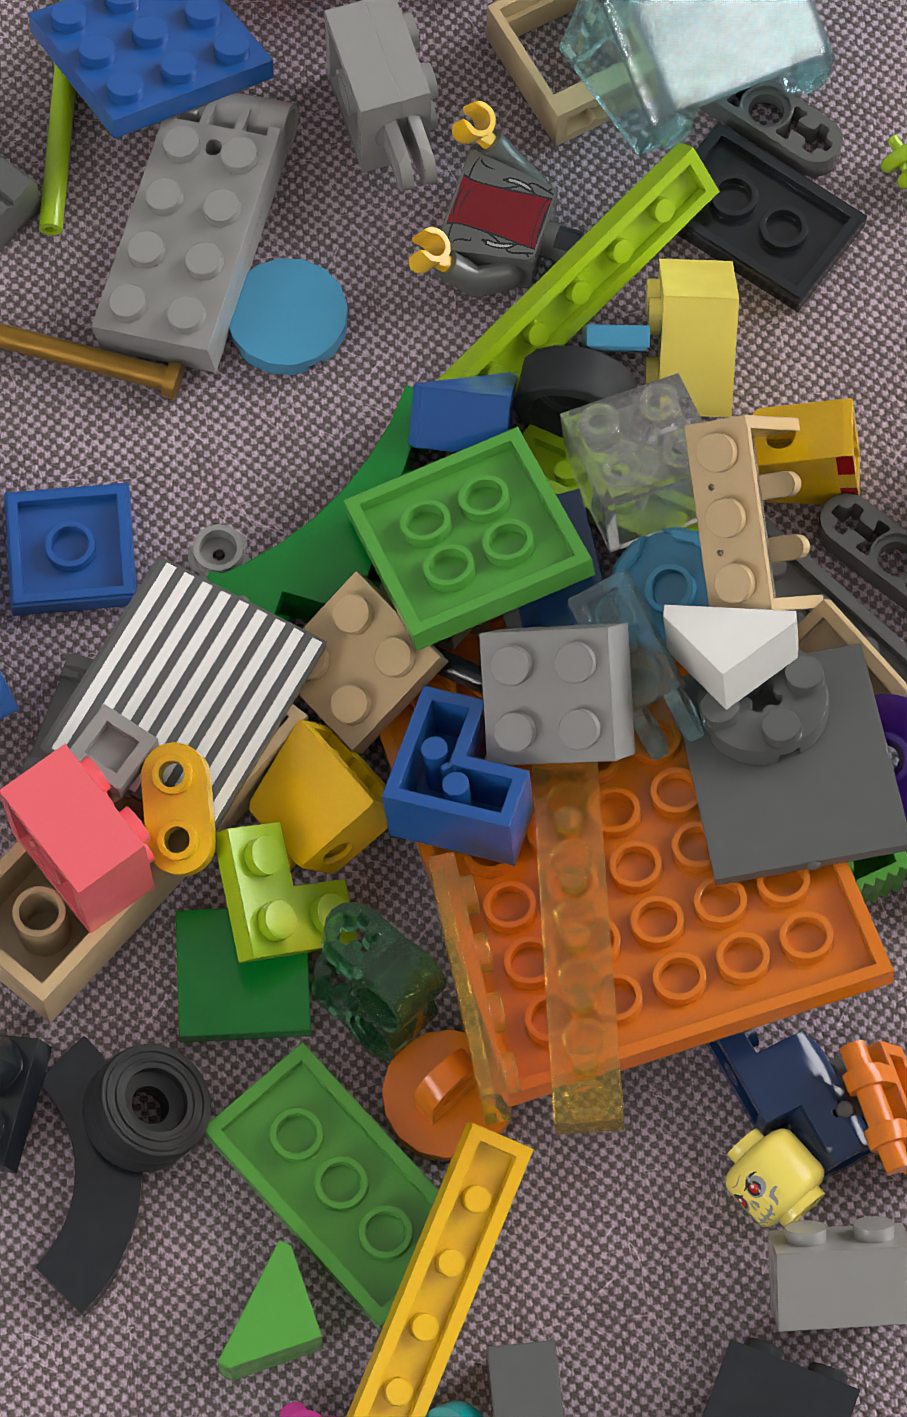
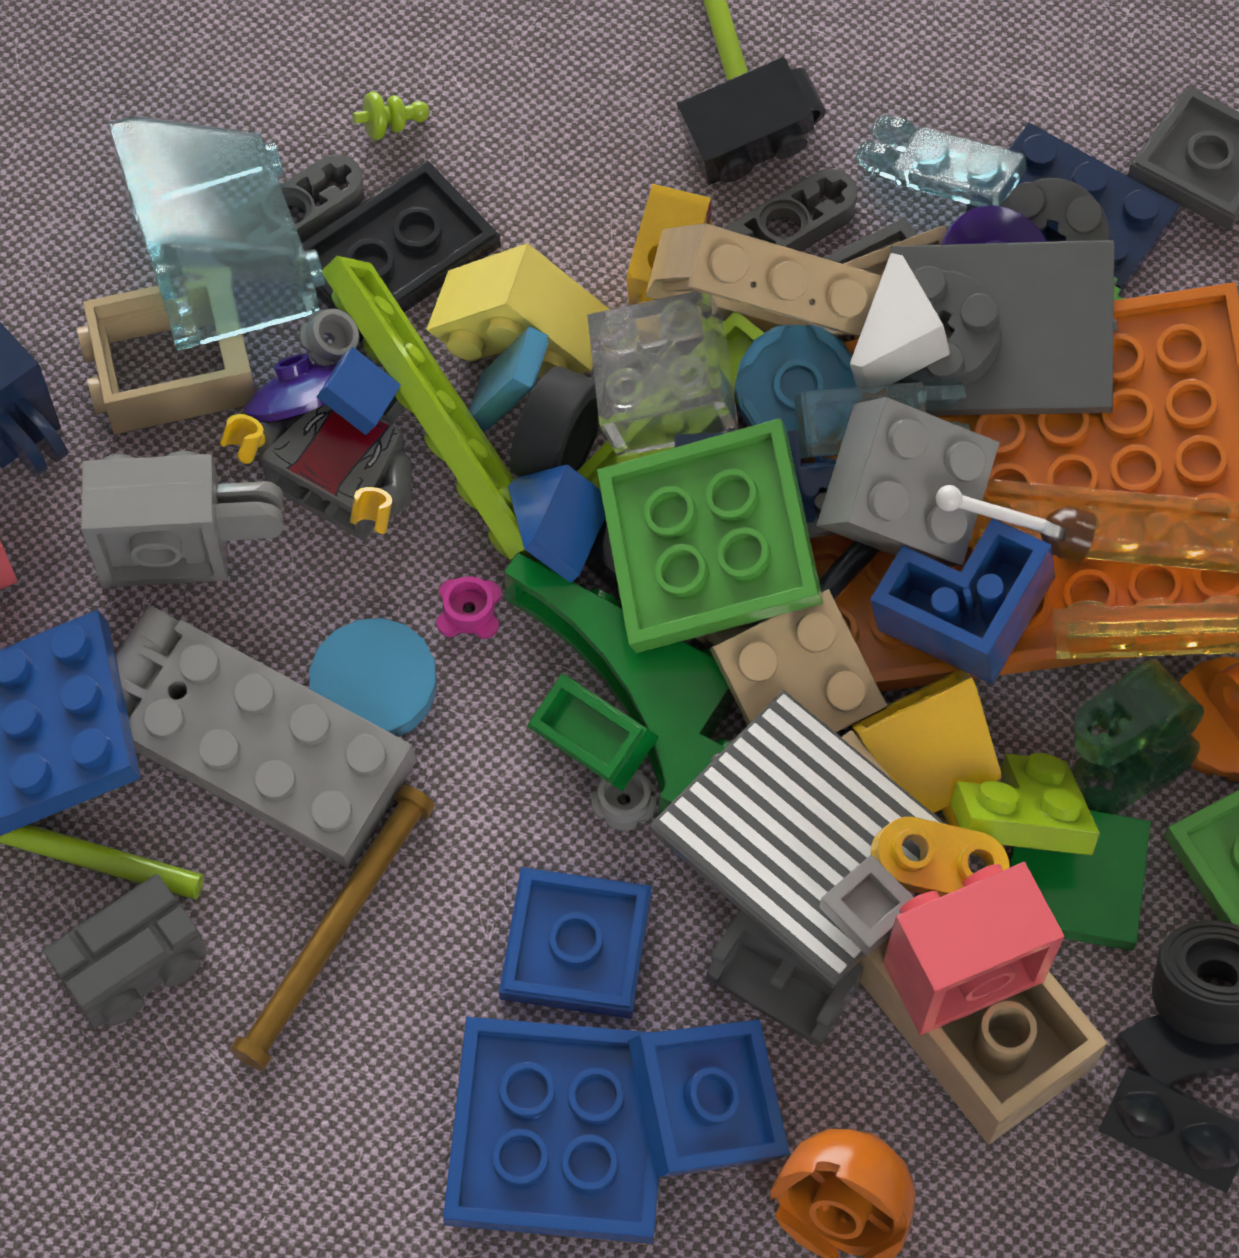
camera: 75 degrees left, 5 degrees down
(268, 504) = (592, 732): none -> green tile
(375, 361) = (469, 591): none -> dark pink plate
(534, 841) = (1066, 529): none -> hinge
(552, 206) = (358, 390): none -> blue tile
(559, 168) = (290, 391): none -> dark purple dish
(608, 155) = (334, 324): none -> light grey plate

